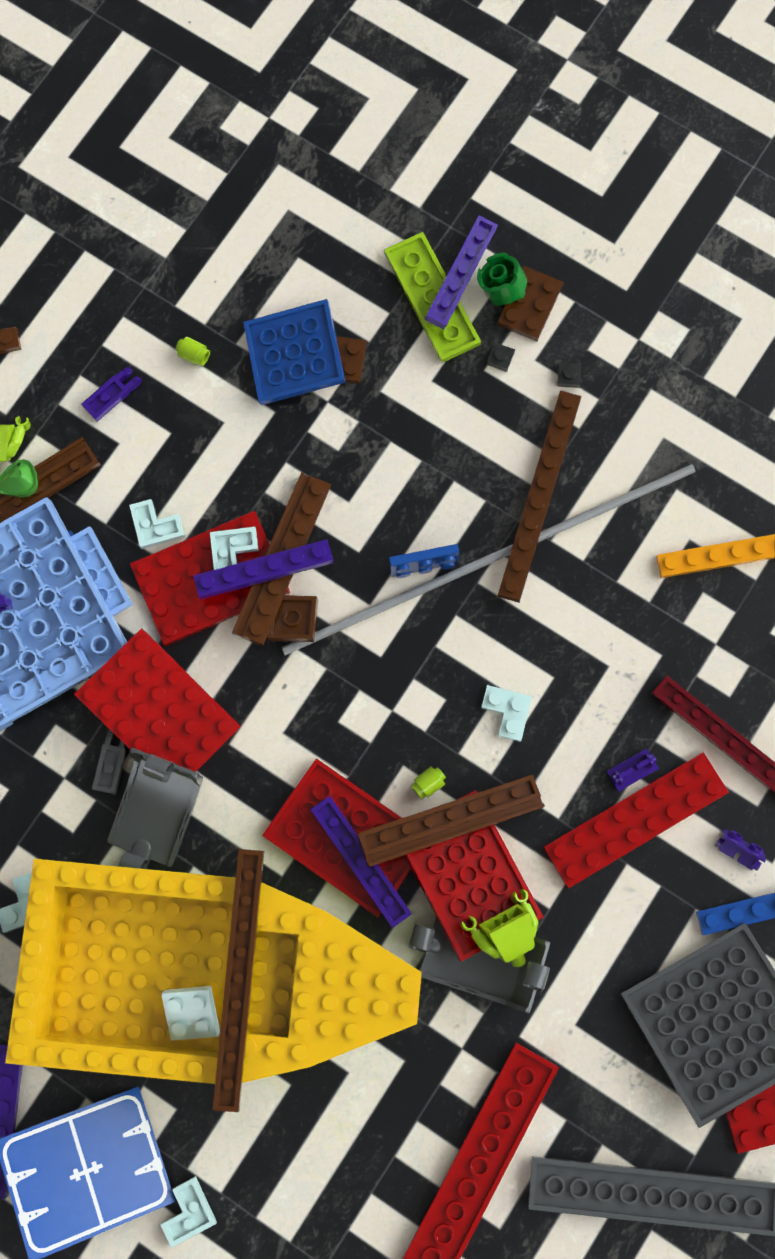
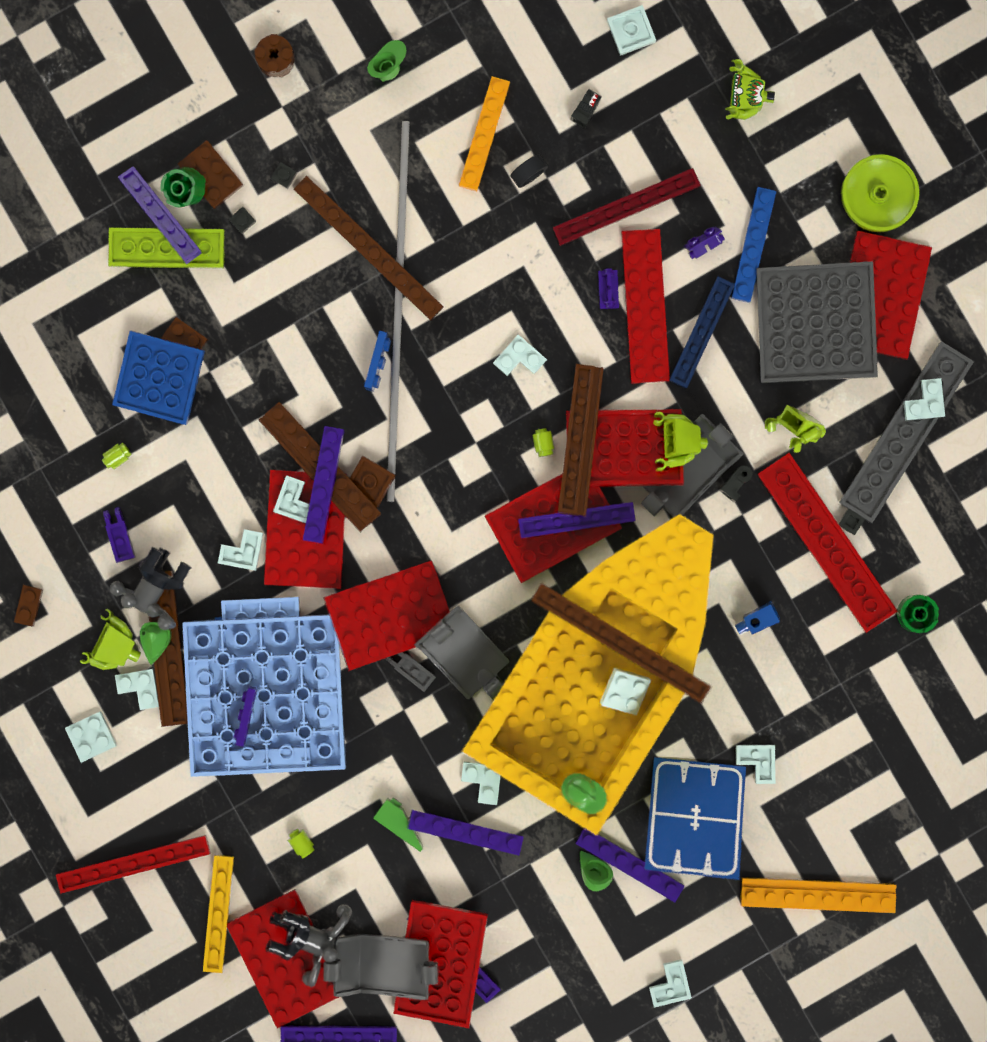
camera: 70 degrees left, 10 degrees up
(46, 1023) = (584, 793): none -> bright green piece
(69, 446) = (152, 586): none -> wheel
(360, 1135) = (767, 616): none -> blue torso
(494, 1021) = (735, 481): none -> pearl dark grey leg
(517, 1182) = (851, 521): none -> pearl dark grey plate
(596, 1063) = (800, 424): none -> lime torso
(641, 897) = (702, 332): none -> dark blue plate
(686, 304) = (273, 45): none -> reddish brown brick
(698, 1209) = (931, 403): none -> light aqua plate
(713, 618) = (529, 171): none -> black tyre
(744, 417) = (387, 61): none -> bright green piece

